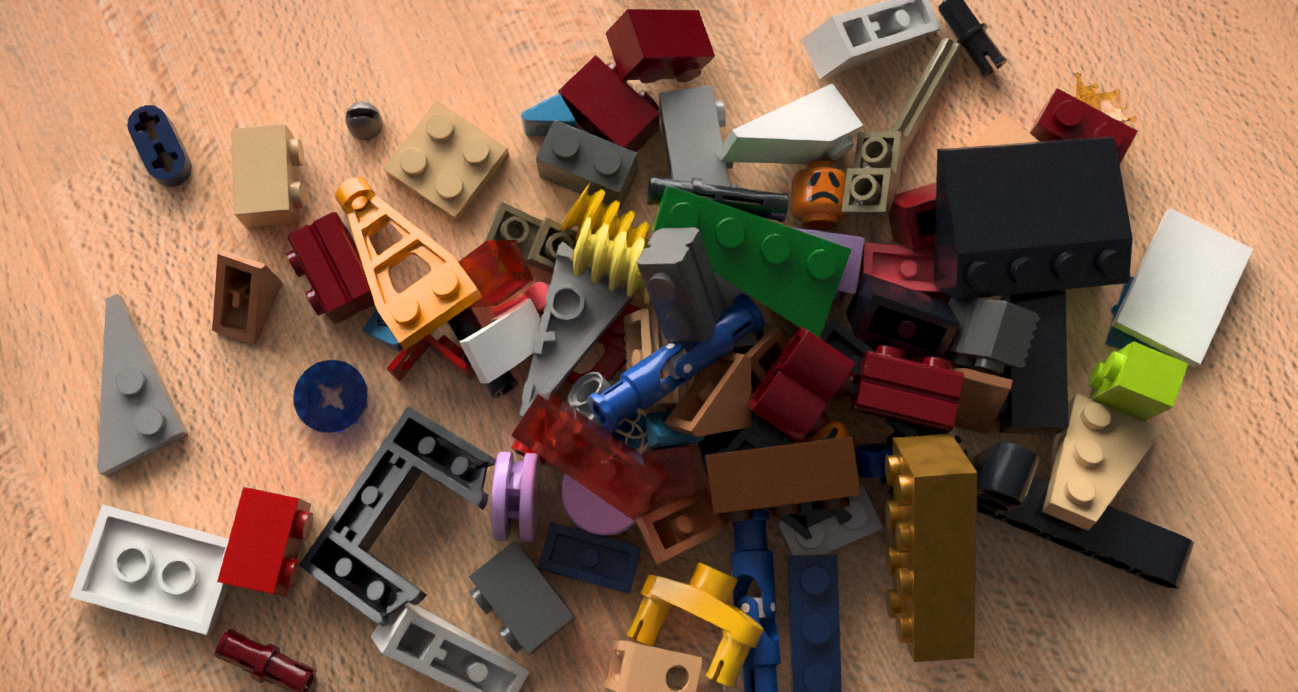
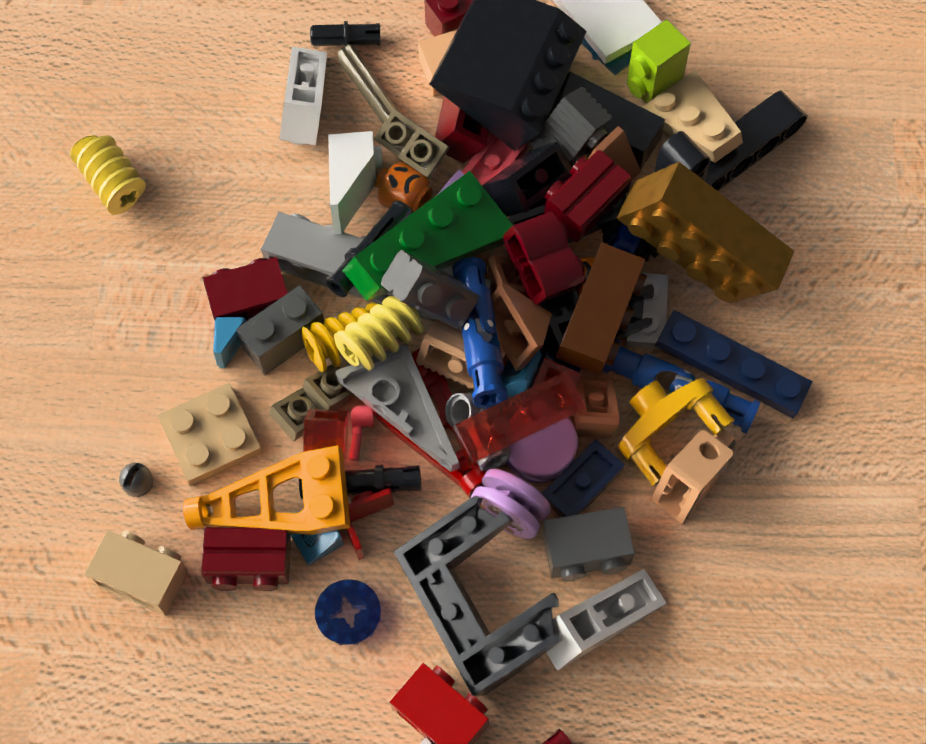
camera: 60 degrees left, 10 degrees down
(151, 150) = (51, 658): dark blue beam -> none
(242, 296) = (227, 639): nougat slope -> none
(503, 342) = (386, 454): white slope -> none
(659, 45) = (224, 230): dark red brick -> none

